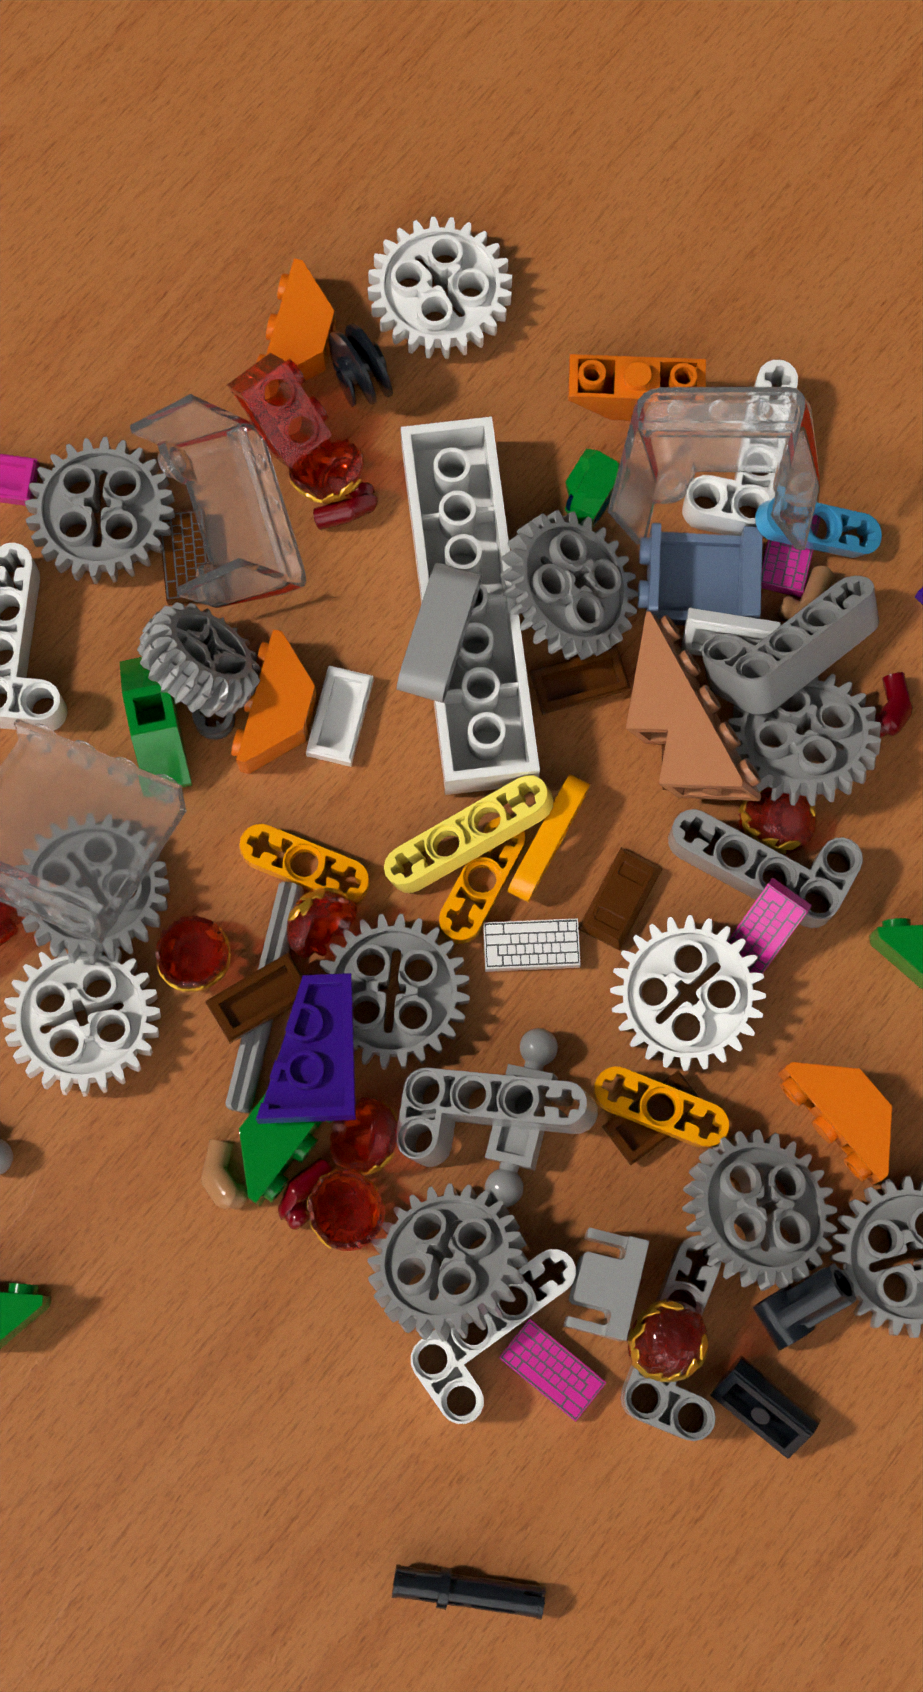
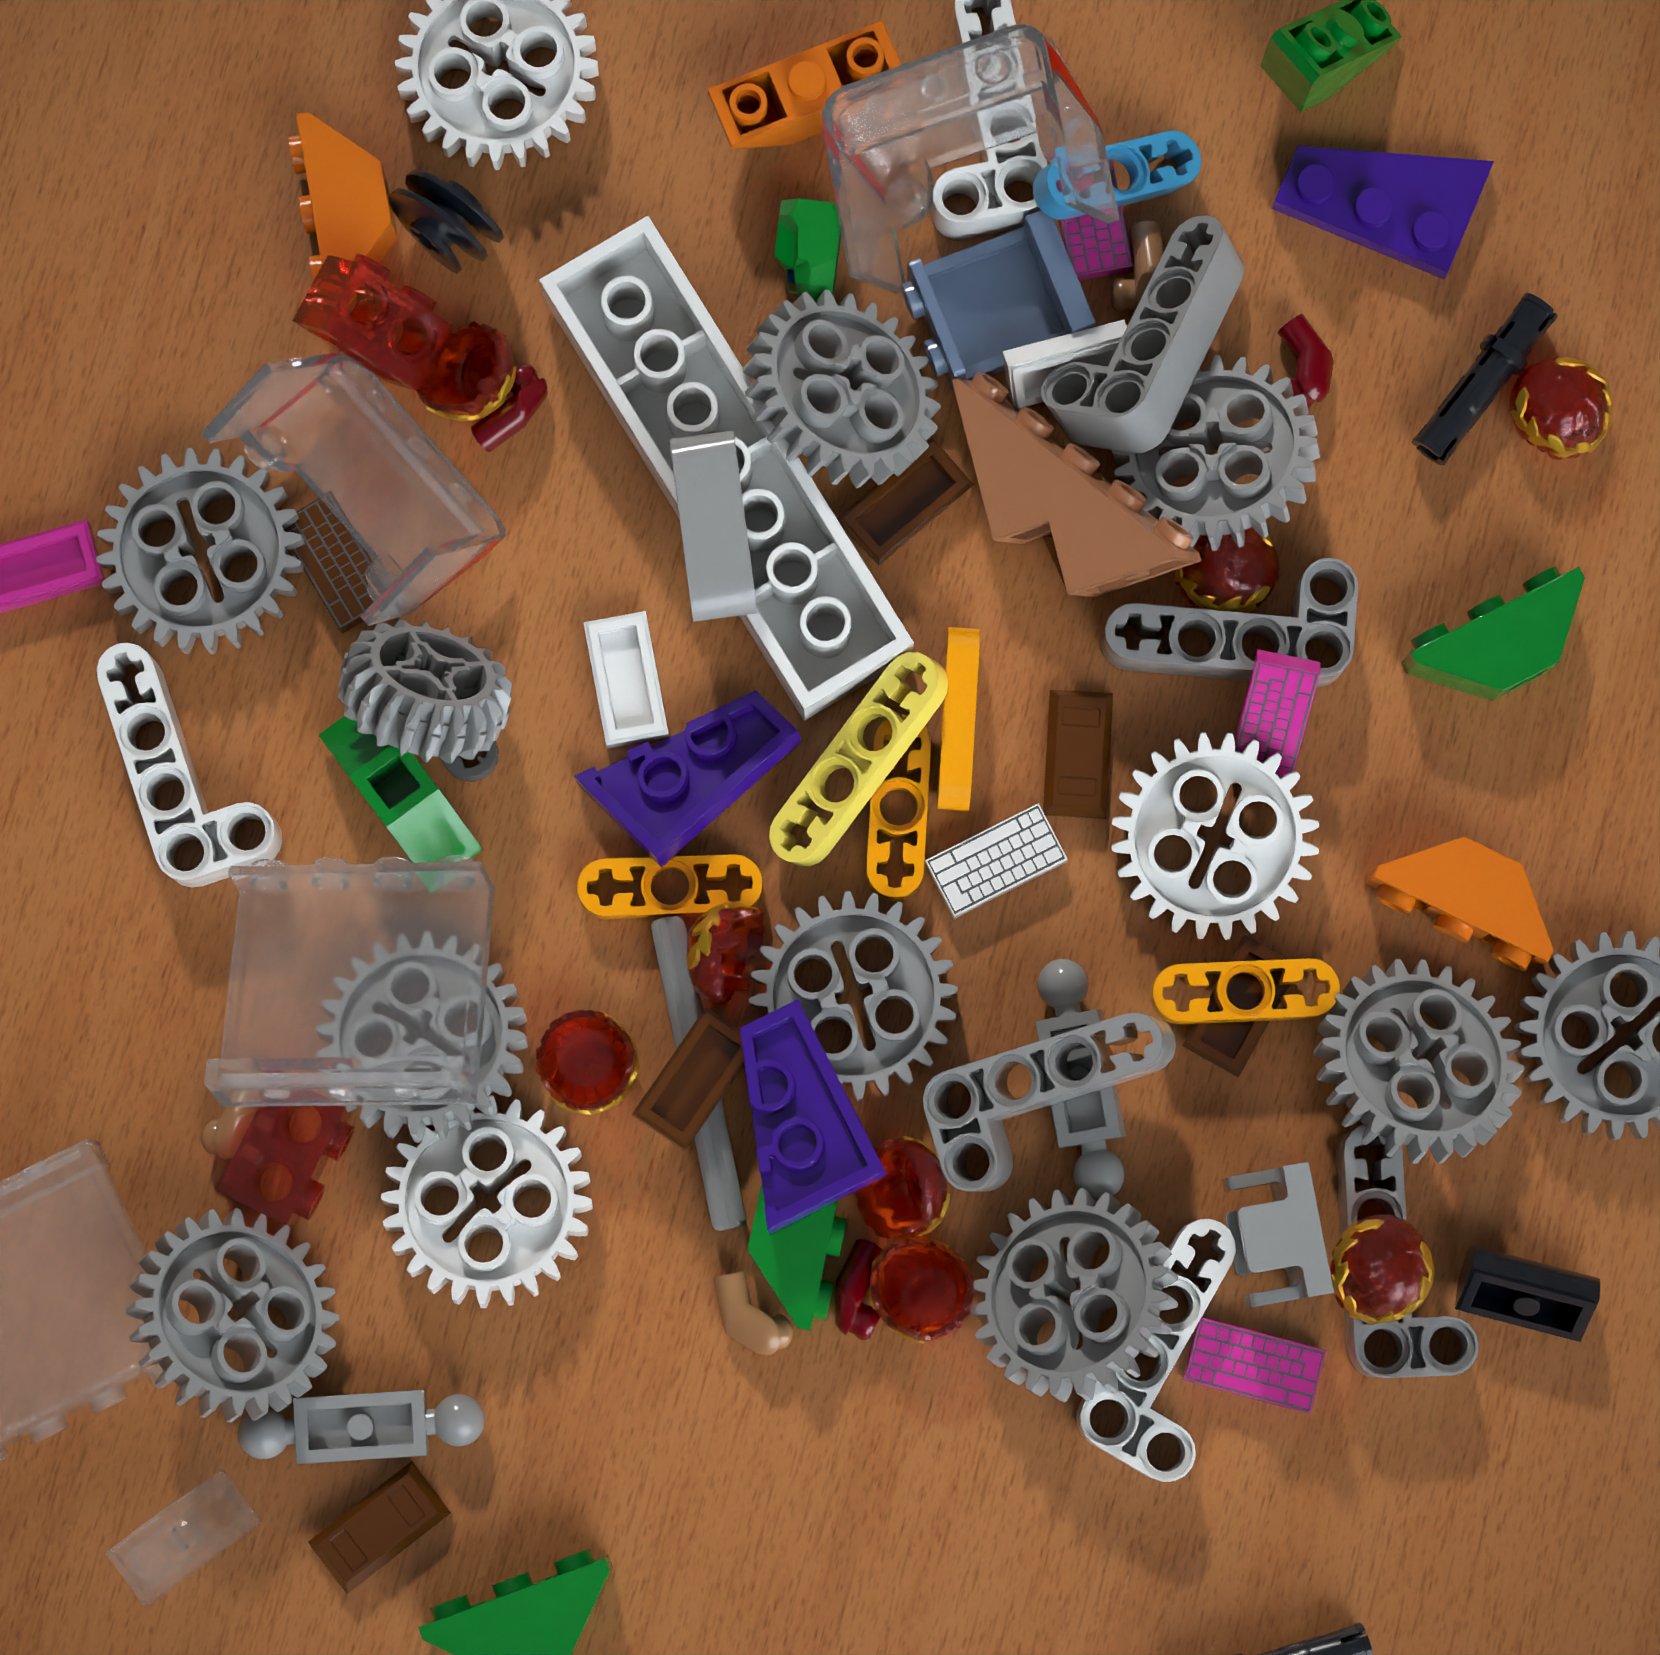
camera: 25 degrees left, 5 degrees up
(278, 709) = (547, 704): orange slope -> none
(346, 799) = (686, 781): none -> dark purple wing
(796, 1310) = (1514, 1162): black piece -> none

